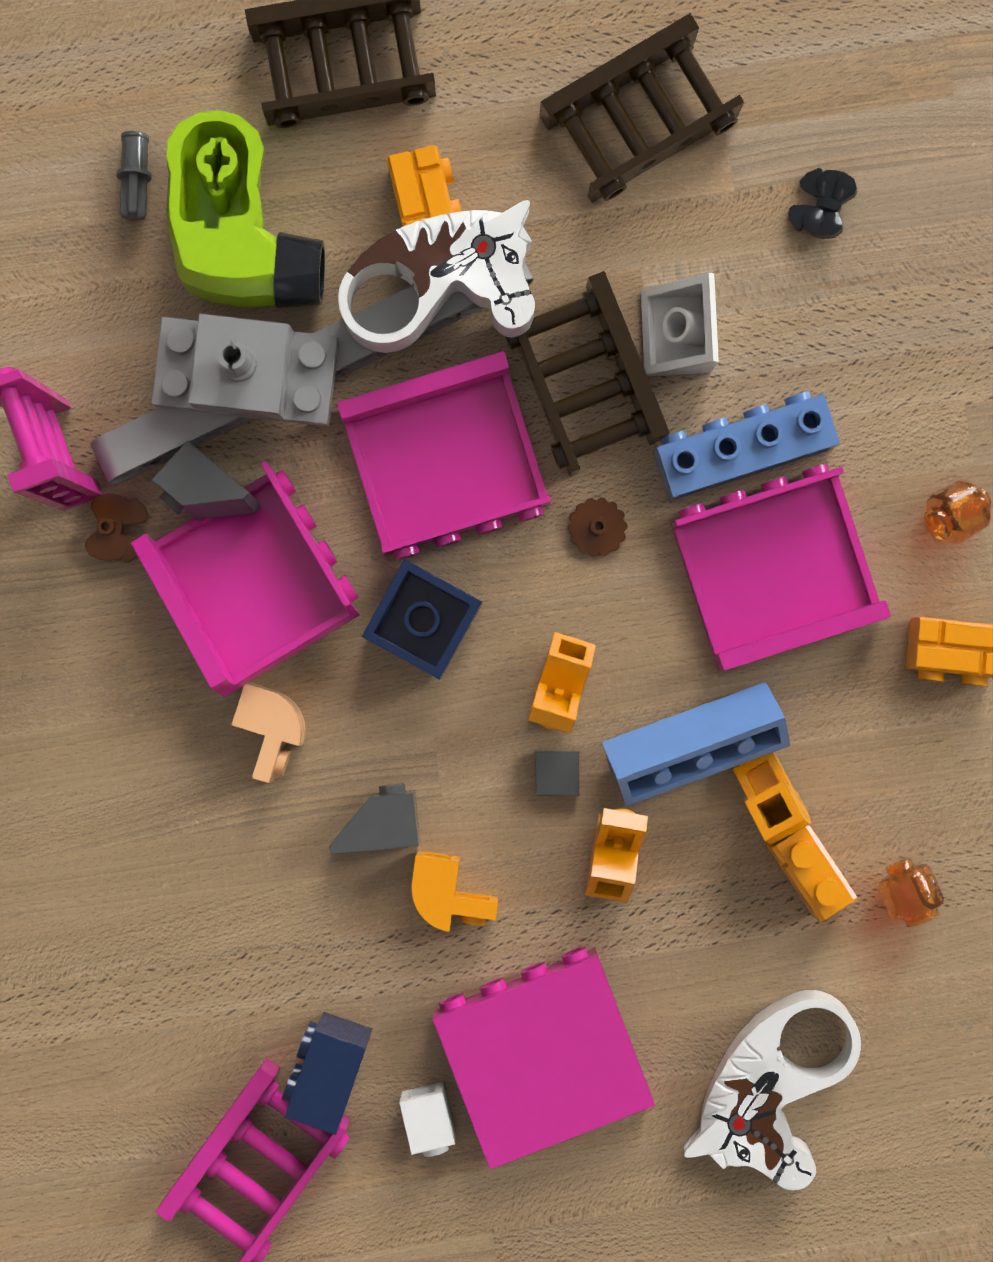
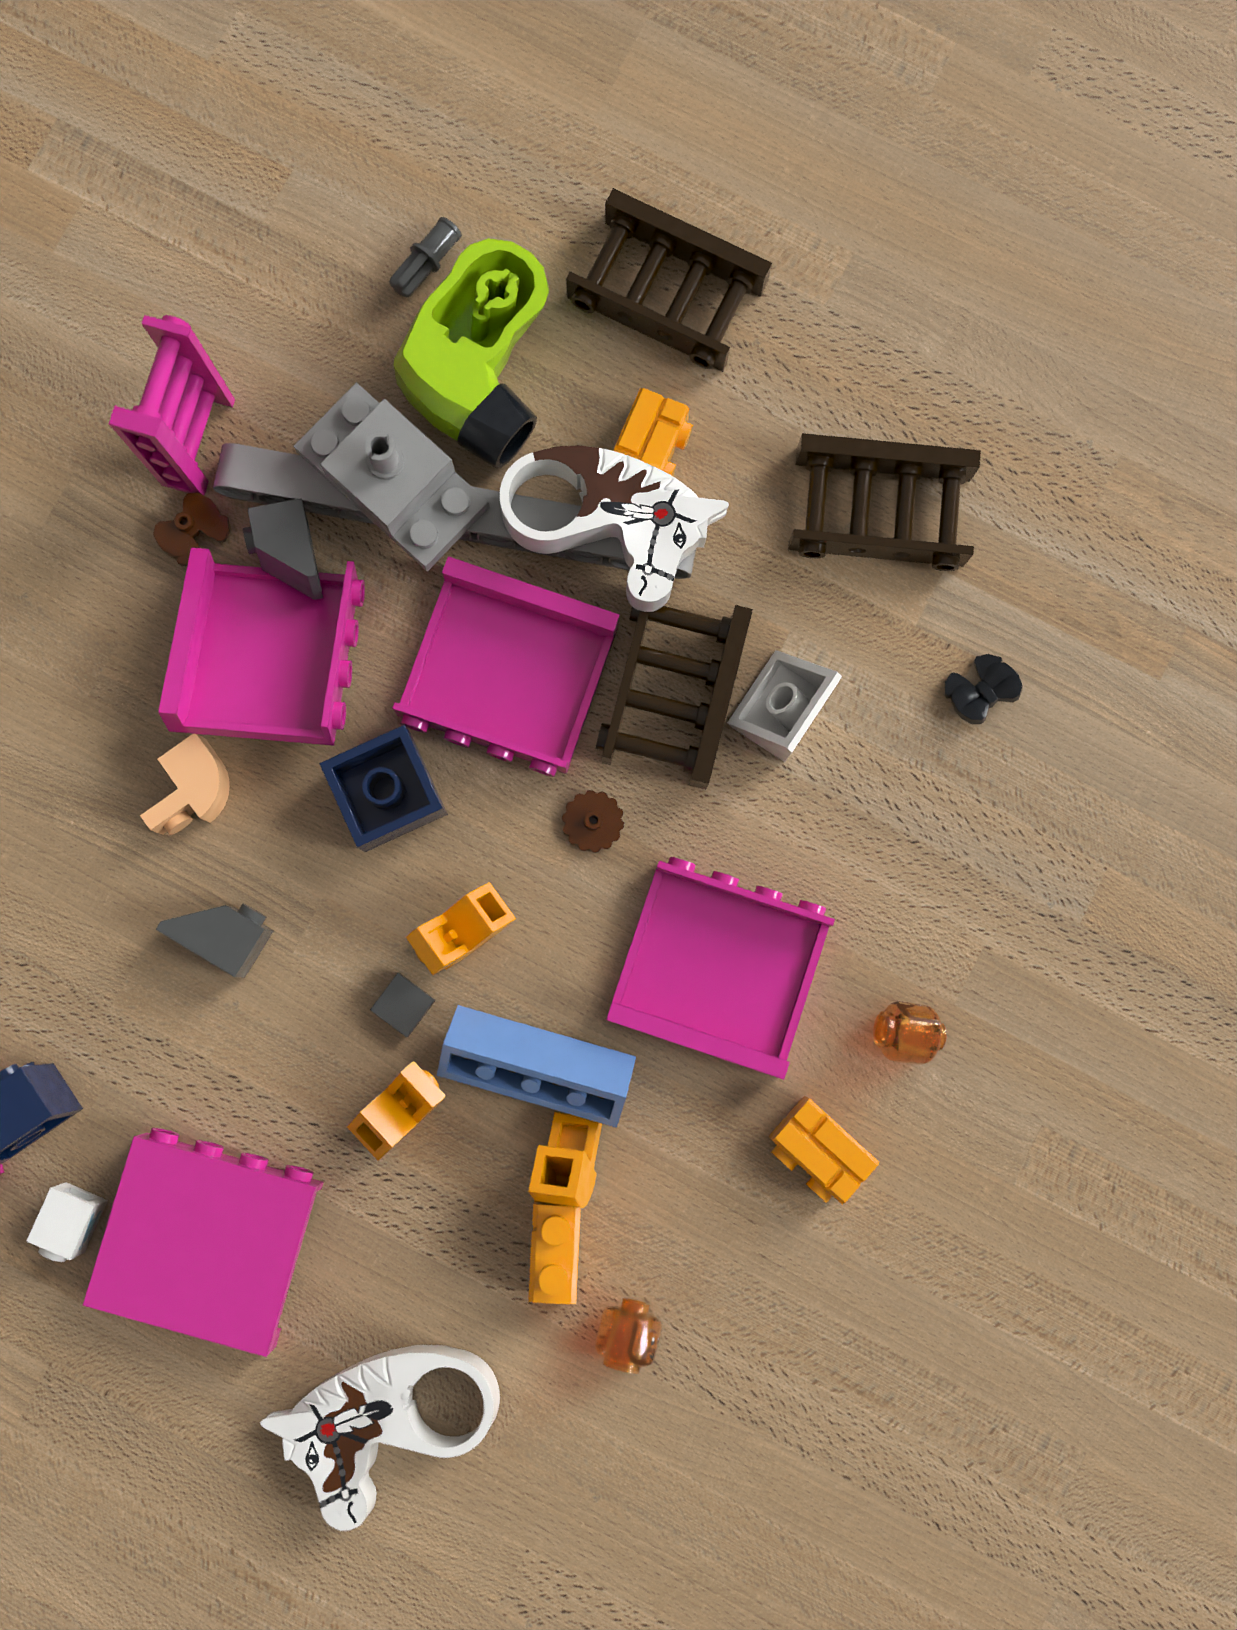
camera: 35 degrees right, 5 degrees down
(436, 897) = (221, 1033): light orange brick -> none
(746, 446) = (768, 844): medium blue brick -> none

